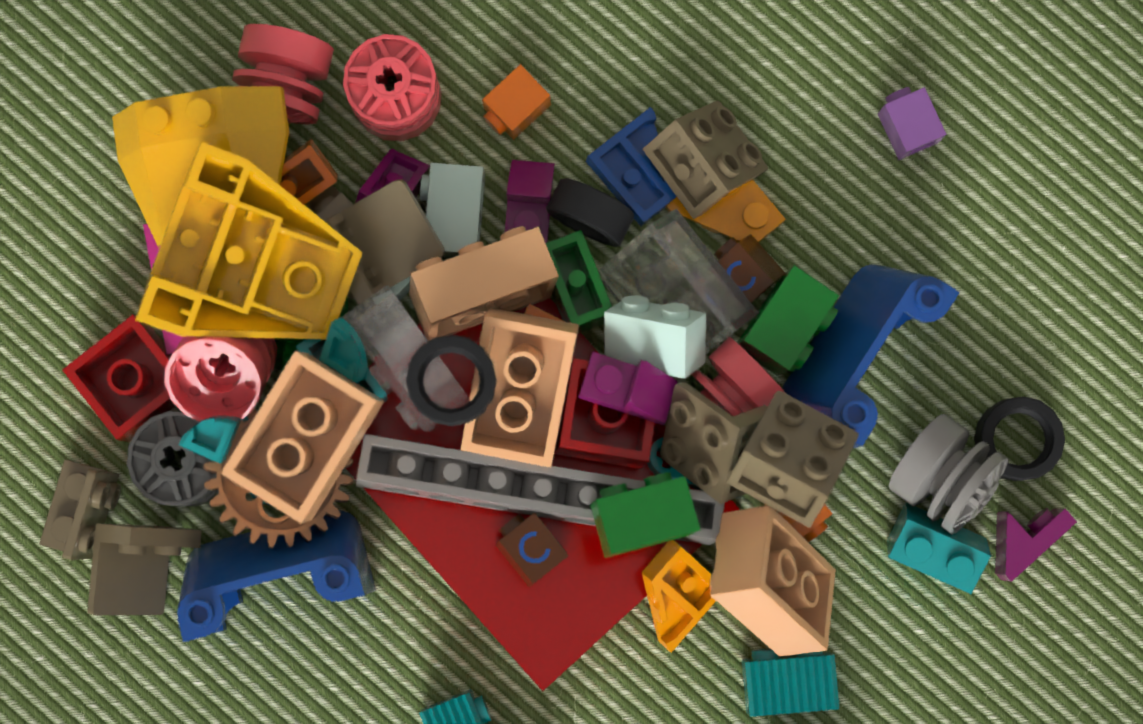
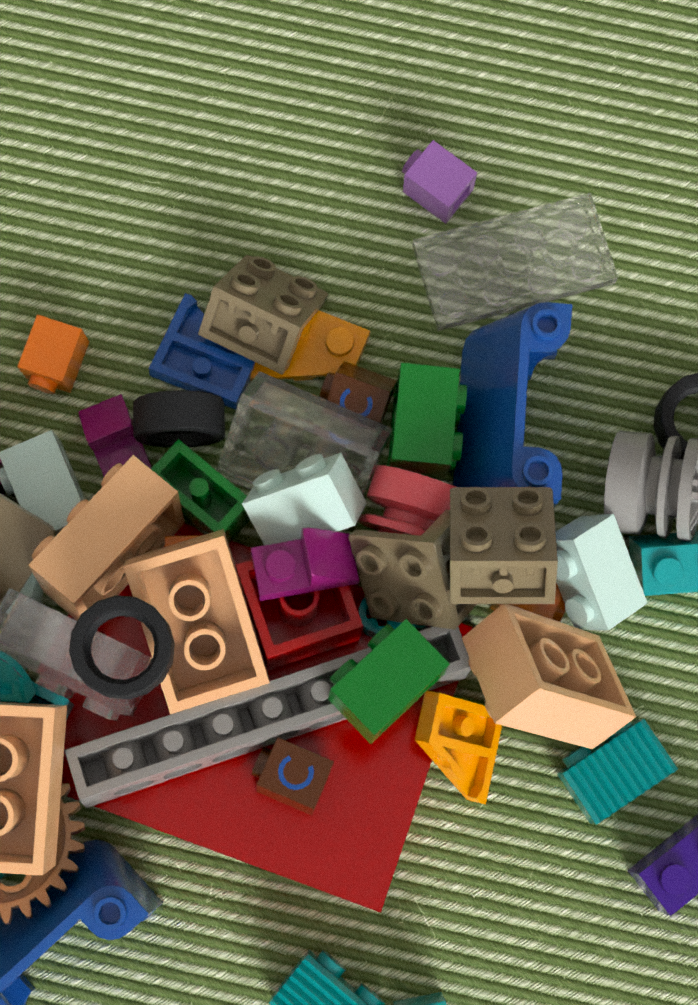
camera: 30 degrees left, 5 degrees down
(859, 518) = (596, 573): none -> light aqua brick
(938, 224) = (514, 261): none -> clear plate

